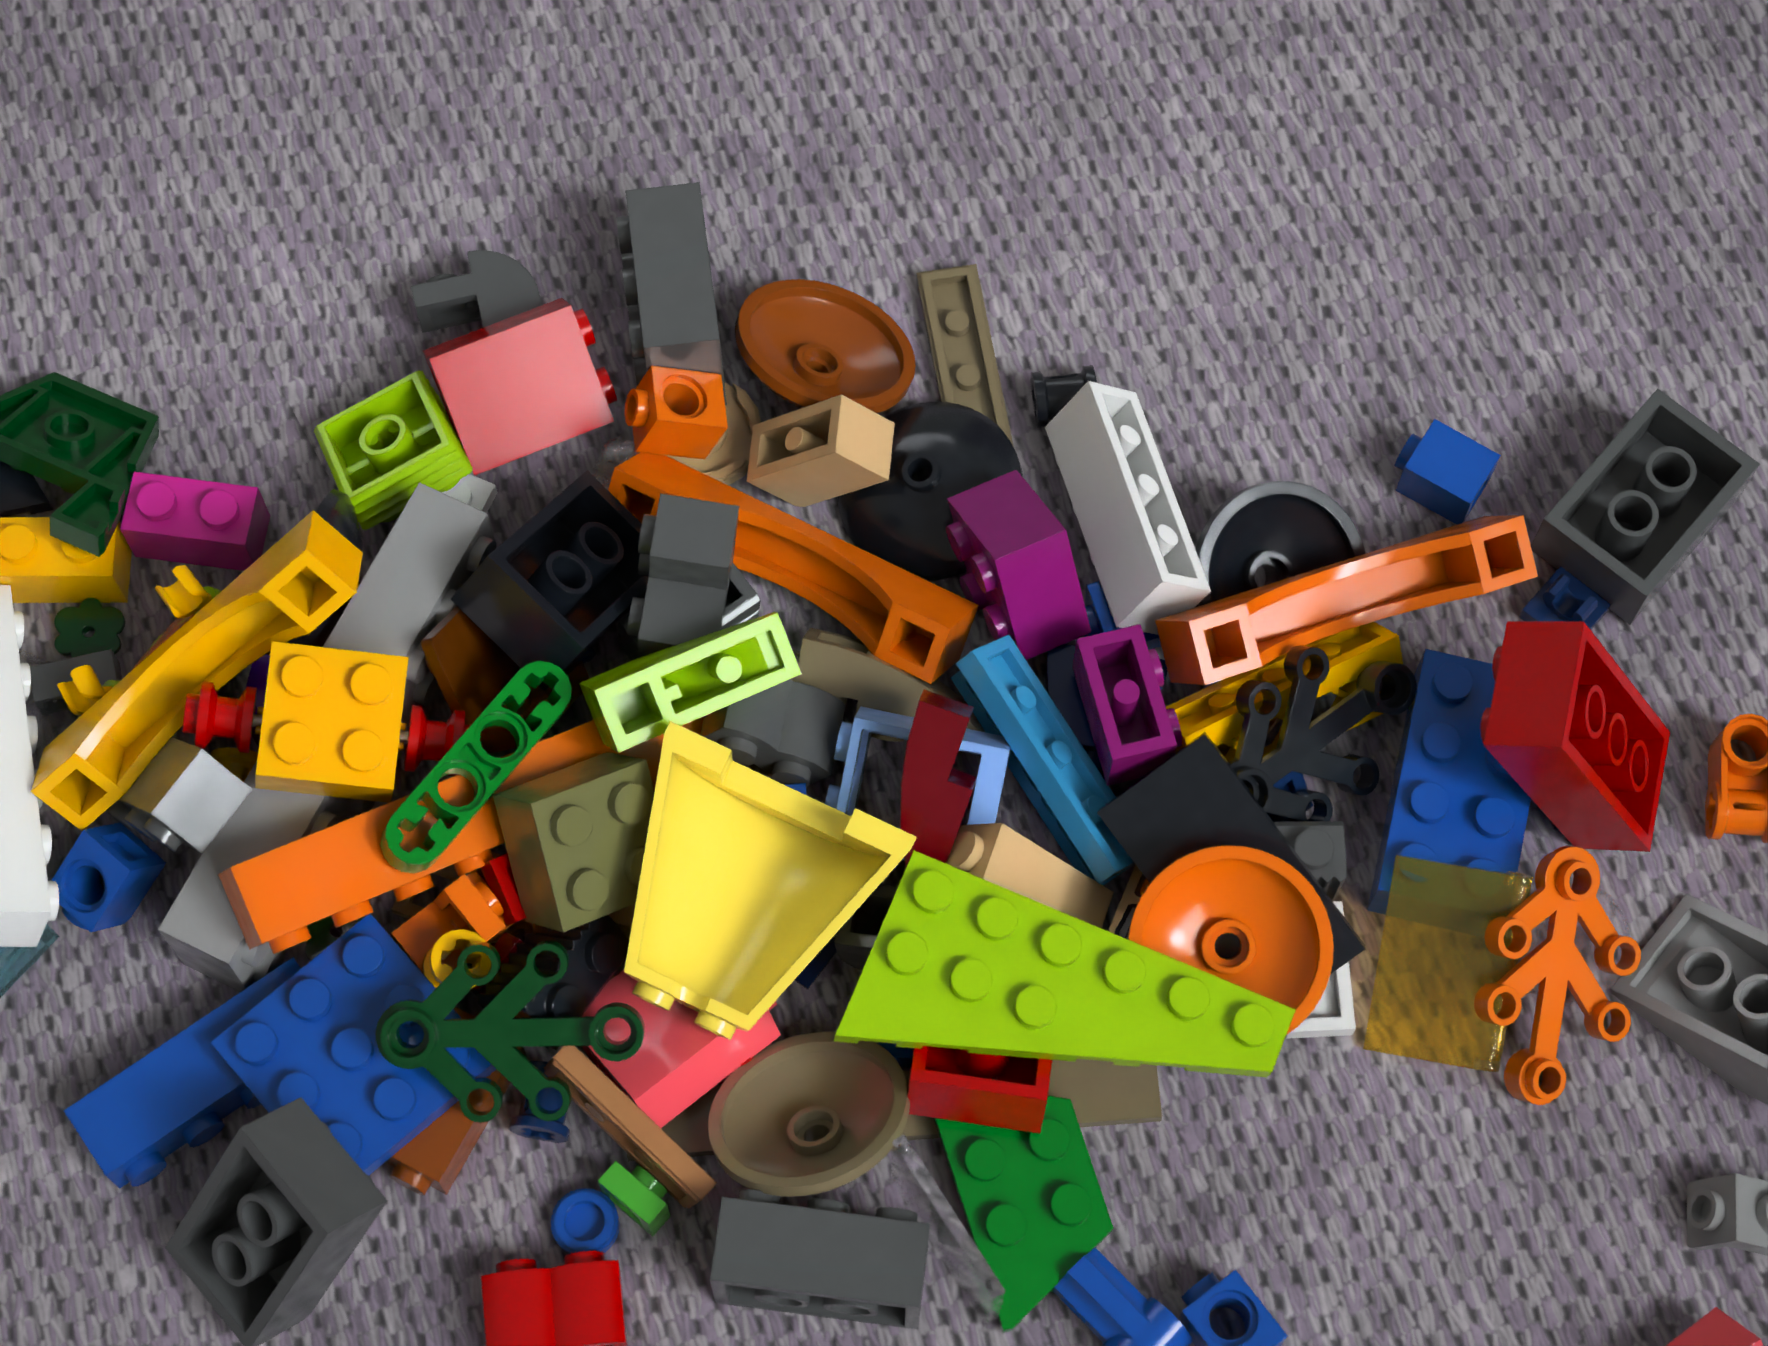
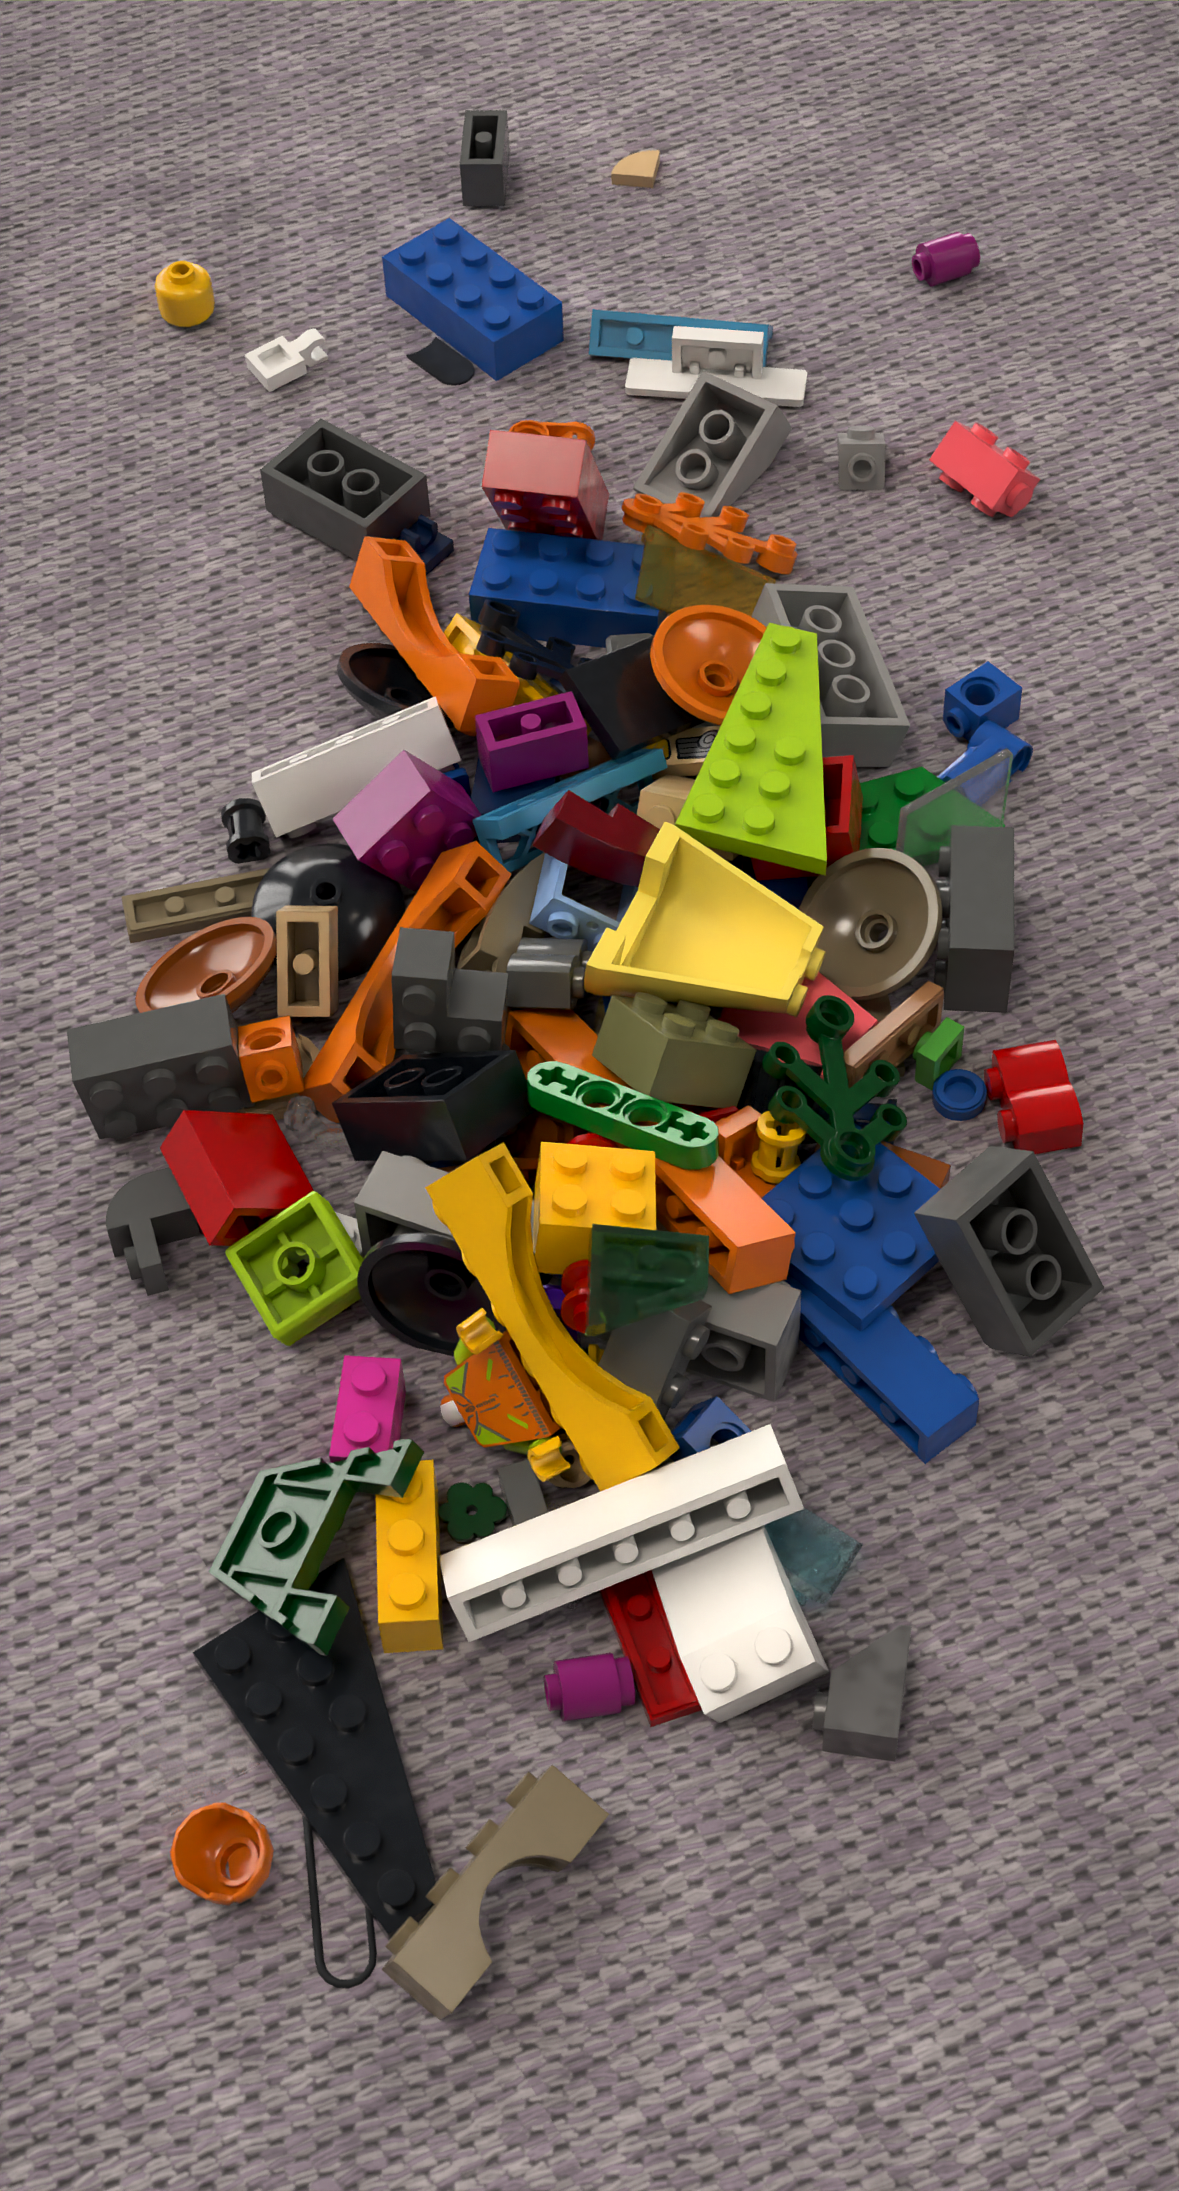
camera: 90 degrees left, 15 degrees down
(203, 754) = (641, 1274): none -> clear green wing
(689, 681) = (543, 990): lime slope -> none
(1325, 1109) = (856, 692): none -> light grey brick
(1445, 471) = (314, 604): blue brick -> none

